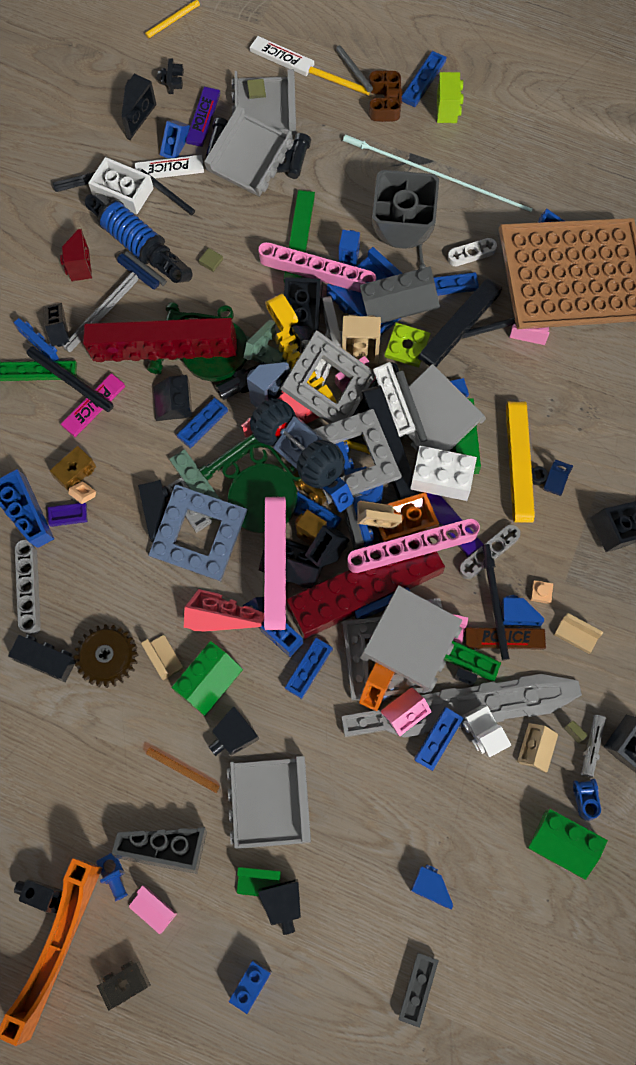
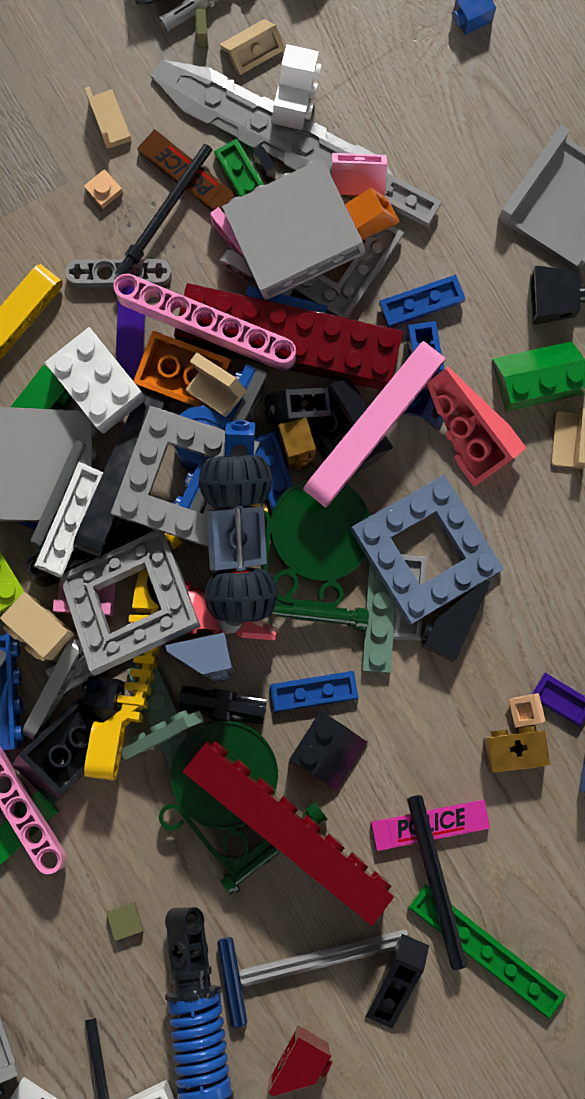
camera: 145 degrees left, 10 degrees up
(36, 339) = (438, 980): blue plate -> none
(162, 281) = (217, 975): dark grey bar -> none
(438, 738) = (346, 124): blue plate -> none
(519, 612) = (149, 182): blue slope -> none

